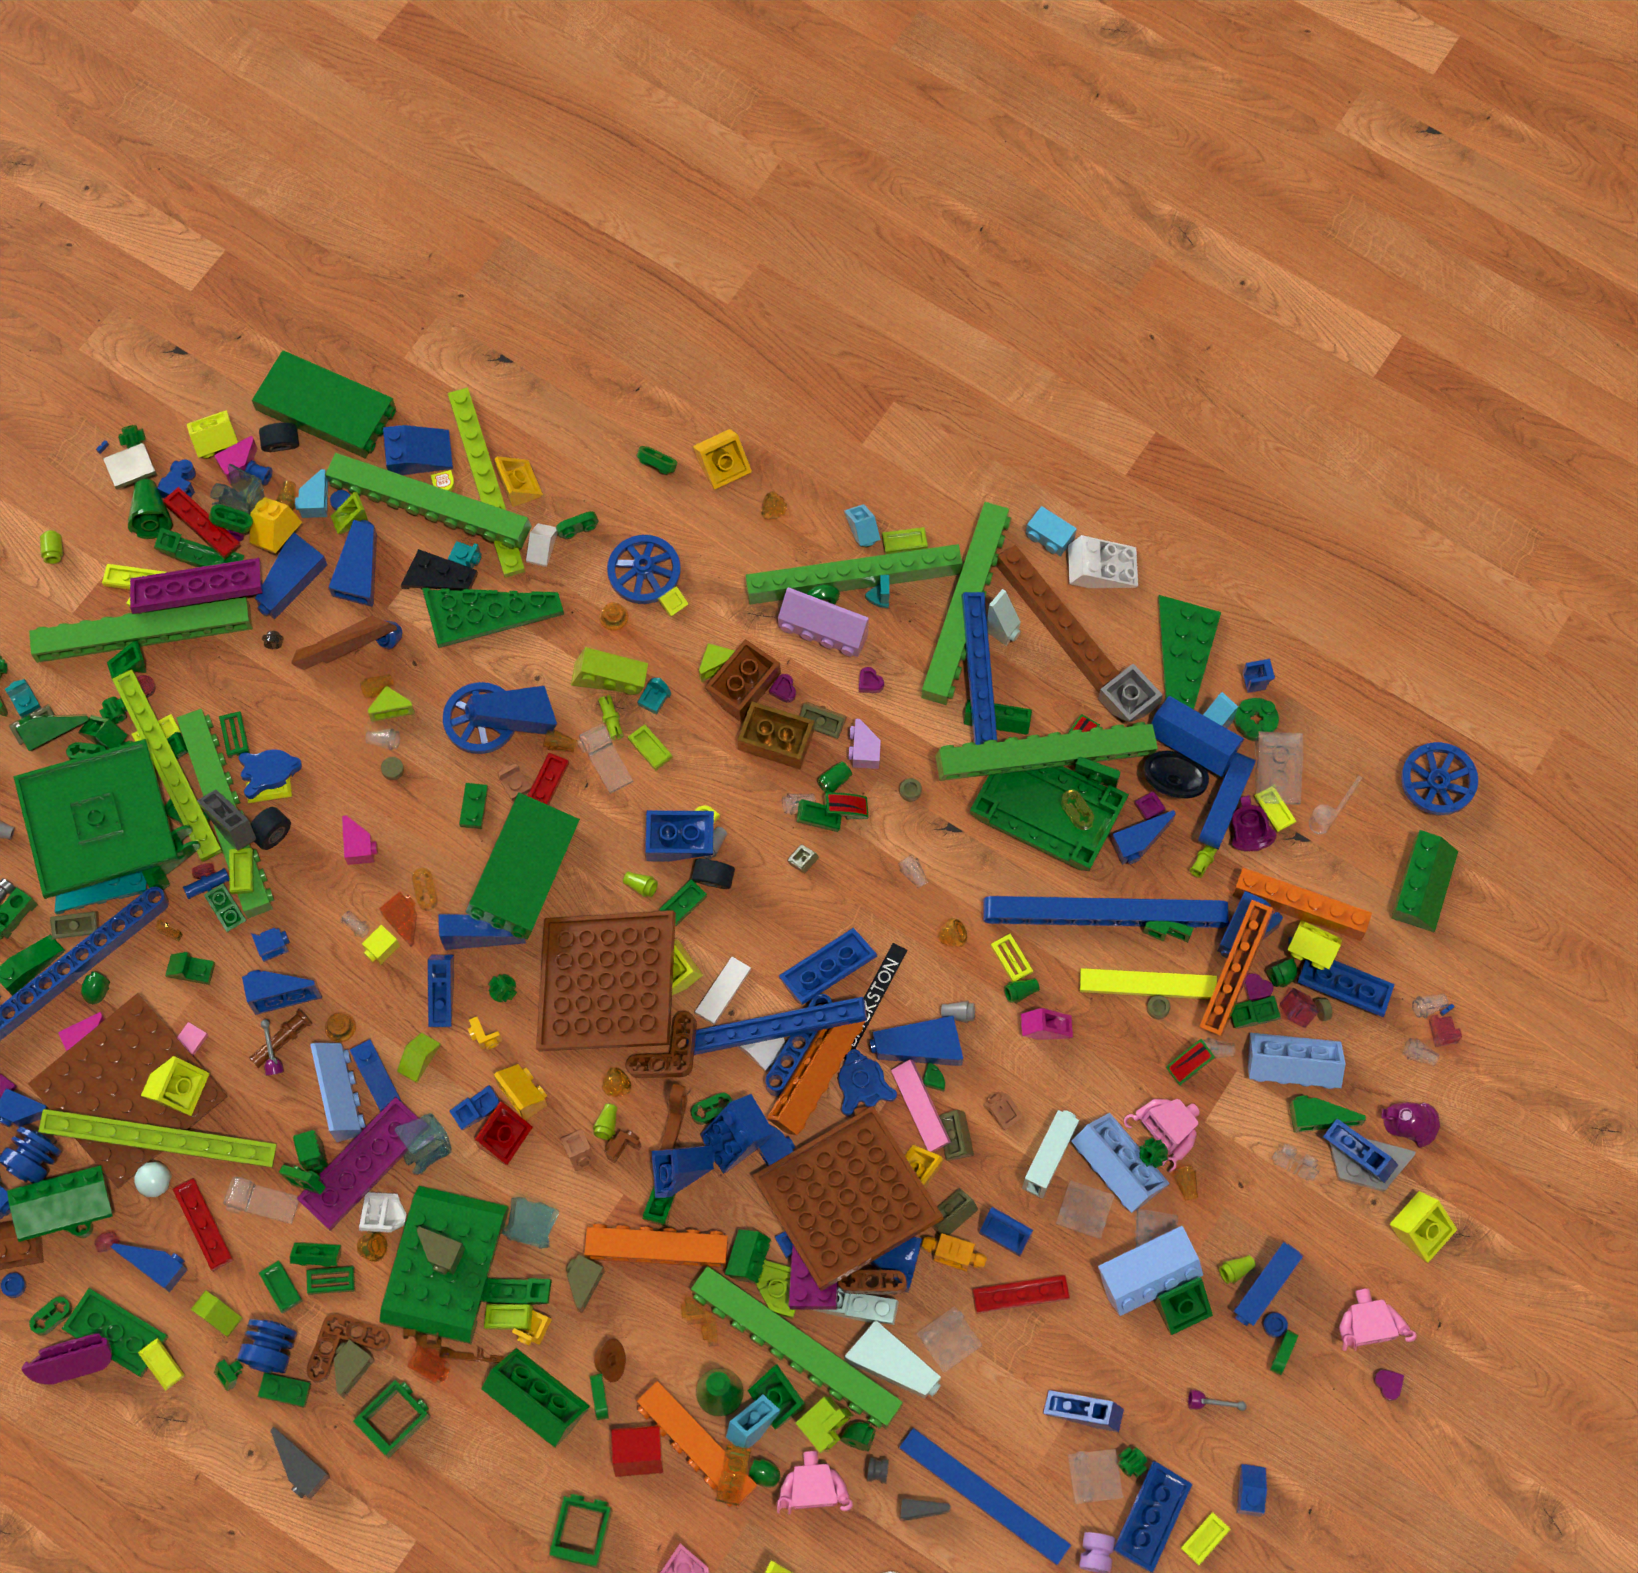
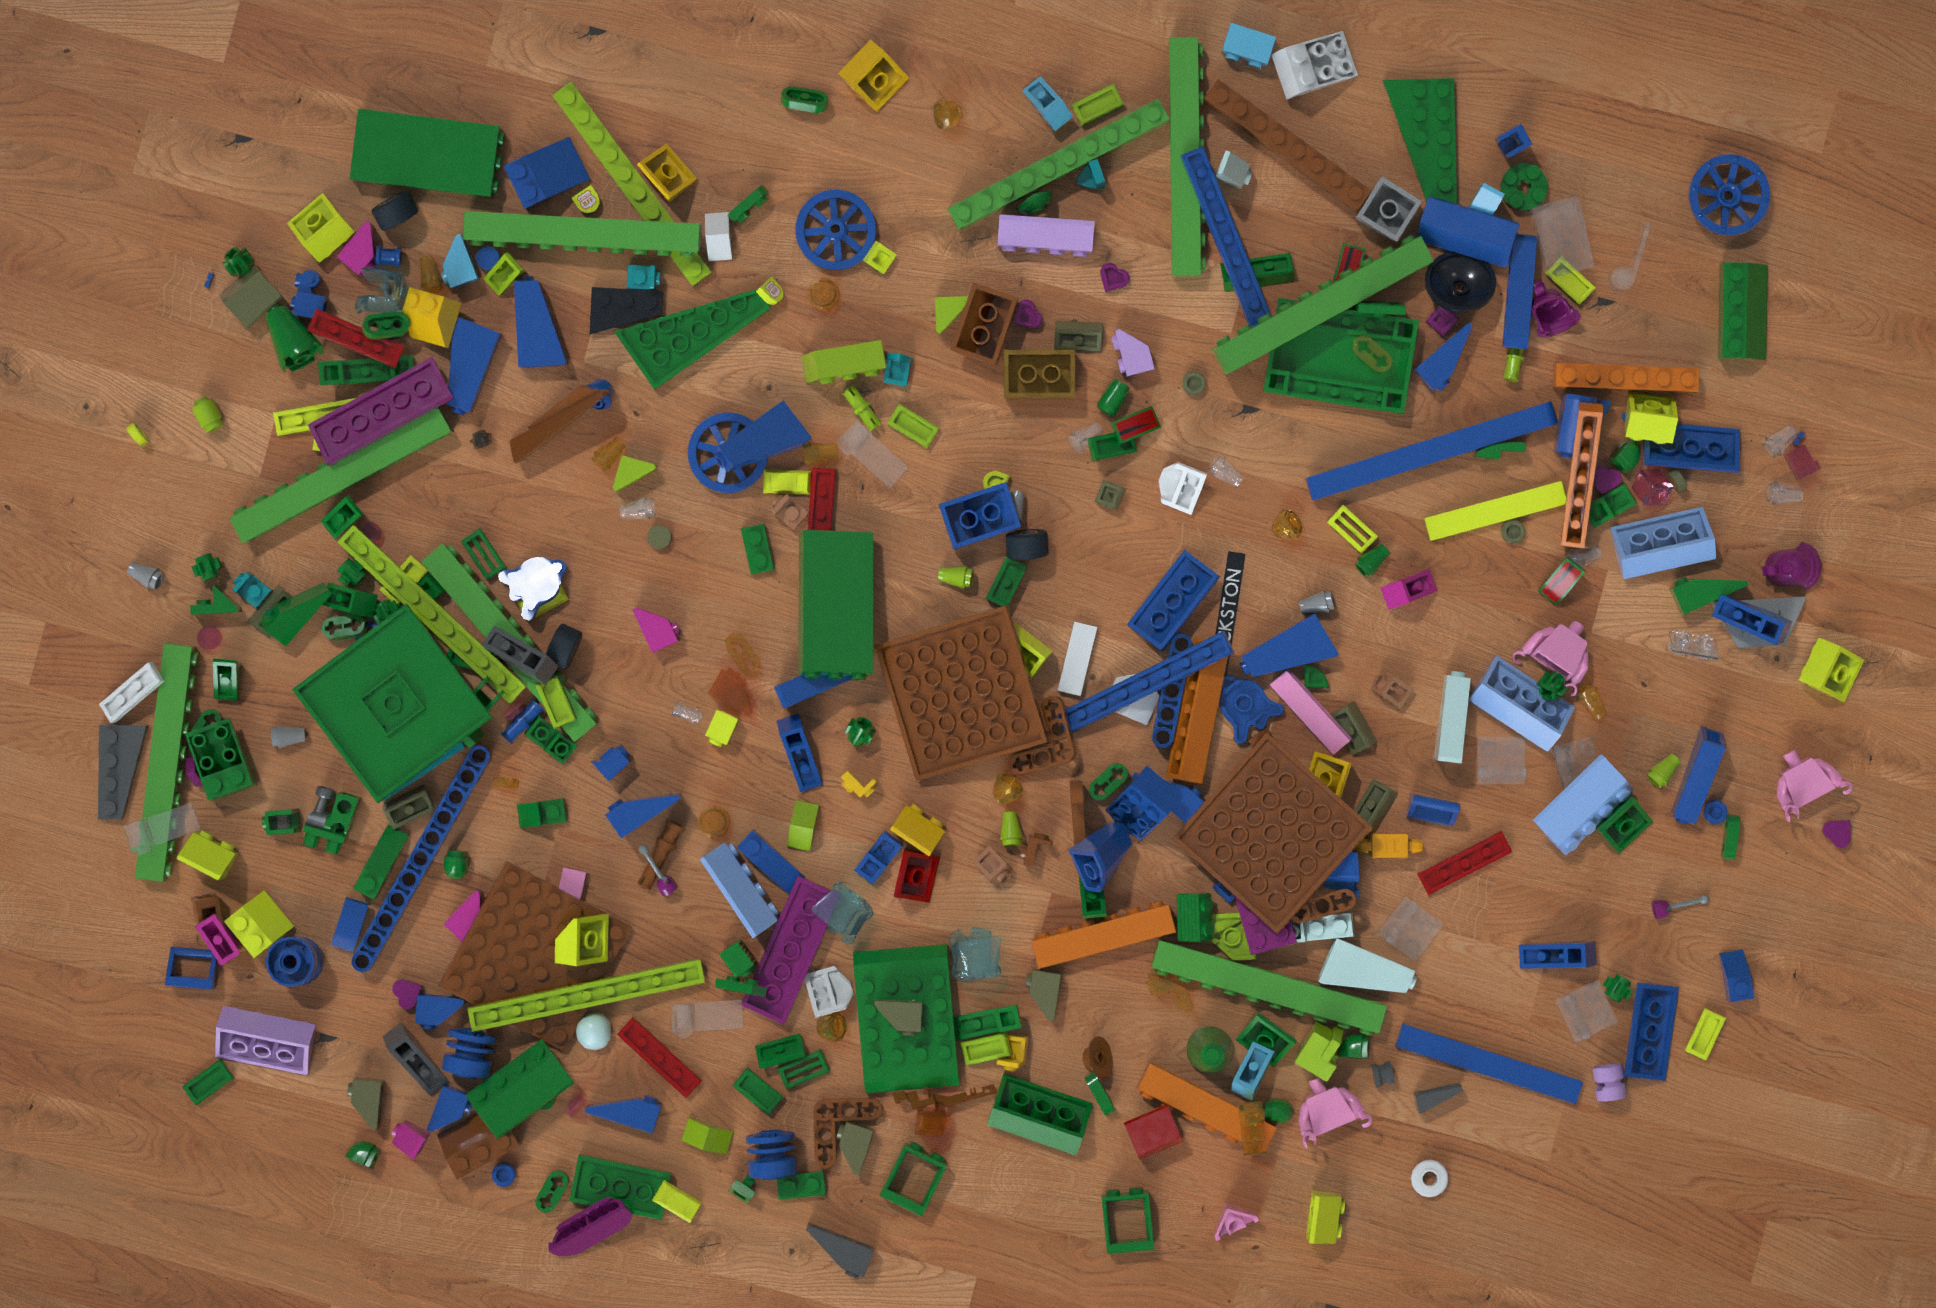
camera: 15 degrees left, 20 degrees up
(526, 760) = (787, 482): none -> neon yellow tile
(568, 598) = (771, 291): none -> neon yellow tile
(870, 871) = (1181, 486): none -> white slope

